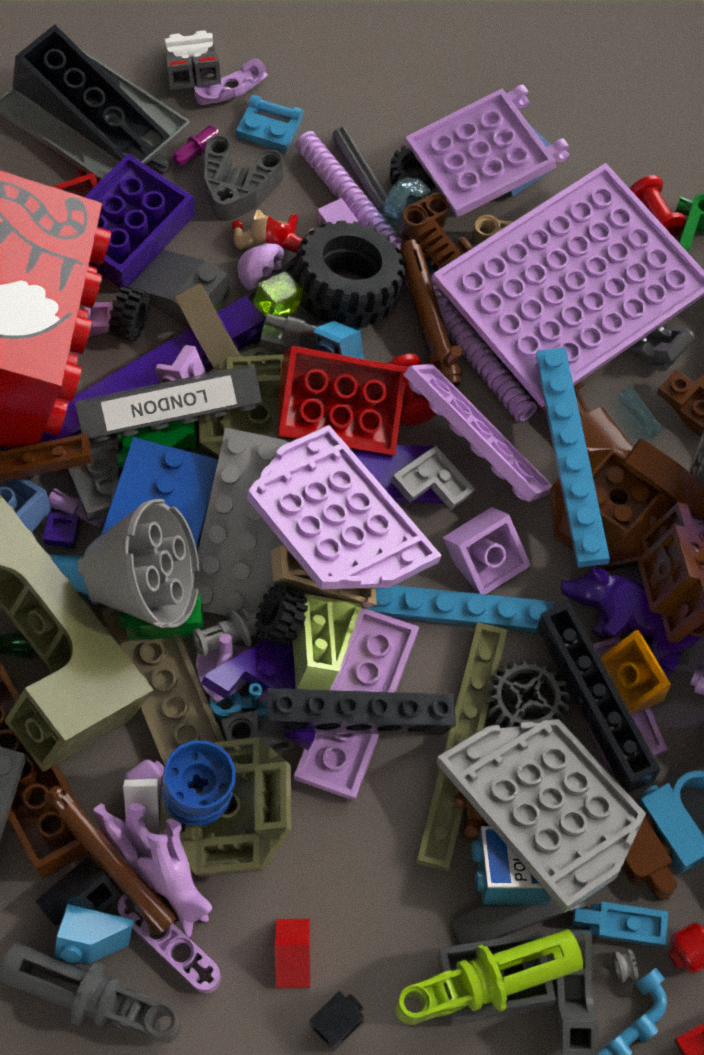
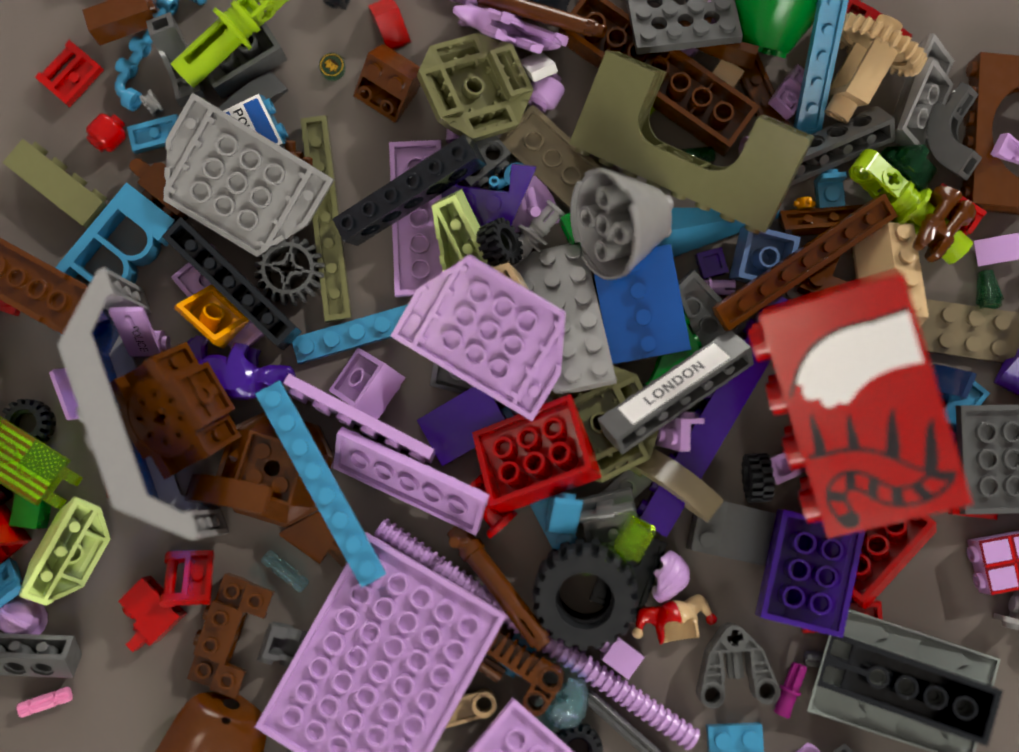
camera: 155 degrees right, 20 degrees up
(201, 765) = (492, 60): blue wheel -> none
(324, 870) = (387, 82): none -> reddish brown slope
(385, 925) = (332, 66): none -> tile
(434, 472) = (433, 430): light grey plate -> none
(490, 492) = (351, 416): none -> lavender plate

